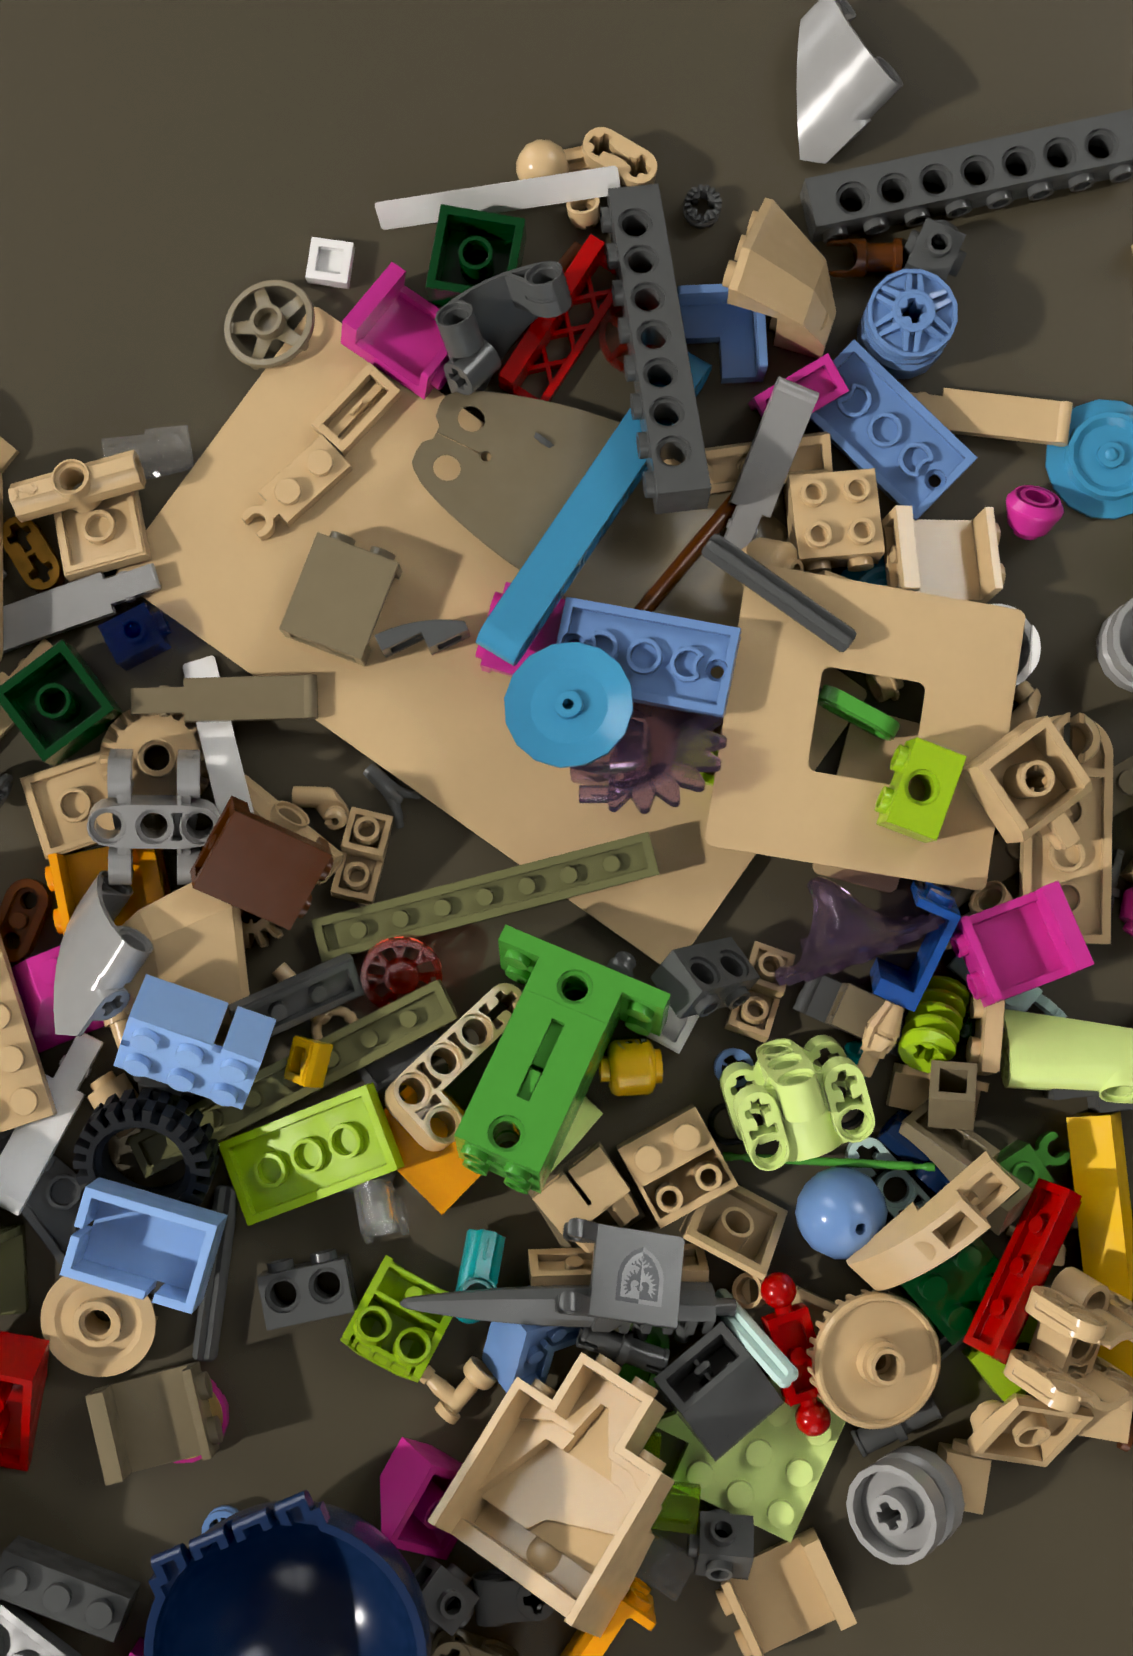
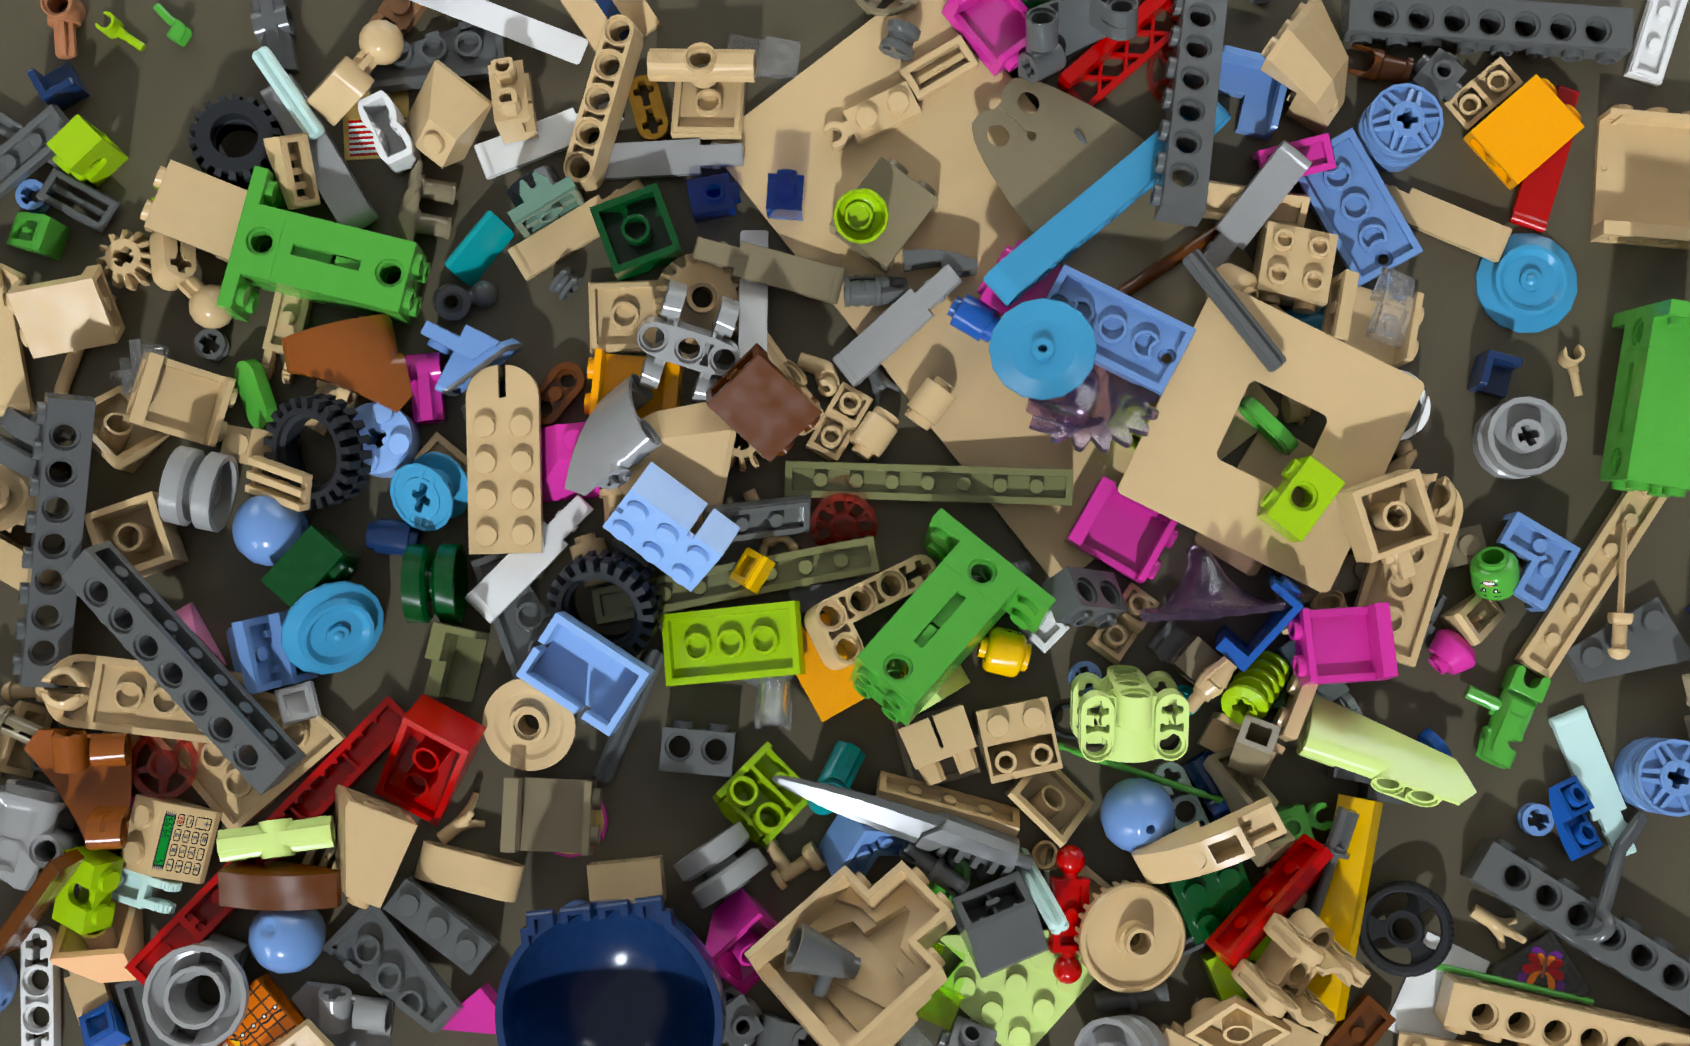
camera: 20 degrees right, 0 degrees up
(54, 1458) = (461, 822): none -> tan bar
(79, 1514) = (469, 871): none -> tan beam
(219, 609) = (785, 195): none -> clear blue brick
(269, 1470) = (626, 878): none -> tan brick
(300, 389) = (899, 39): none -> dark grey wheel
(311, 609) = (861, 215): none -> lime hair
(355, 690) = (872, 289): none -> dark grey hinge
(376, 1423) = (724, 870): none -> light grey wheel
(392, 726) = (894, 327): none -> light grey piece
(405, 857) = (874, 434): none -> tan brick
(459, 802) = (930, 402): none -> tan brick
(479, 688) = (973, 318): none -> blue brick
(518, 1495) = (818, 955): none -> dark grey piece
(632, 1275) = (959, 811): flag -> none
(727, 888) = (1122, 532): none -> dark pink panel
(963, 538) = (1394, 306): none -> clear slope
(993, 255) = (1483, 93): none -> tan slope
(1032, 511) = (1454, 306): dark pink cone -> none
(1052, 285) = (1524, 131): none -> light orange panel
(1083, 1182) = (1338, 844): none -> dark grey piece
(1087, 315) = (1539, 188): none -> red piece
(1099, 575) = (1493, 373): none -> dark blue panel

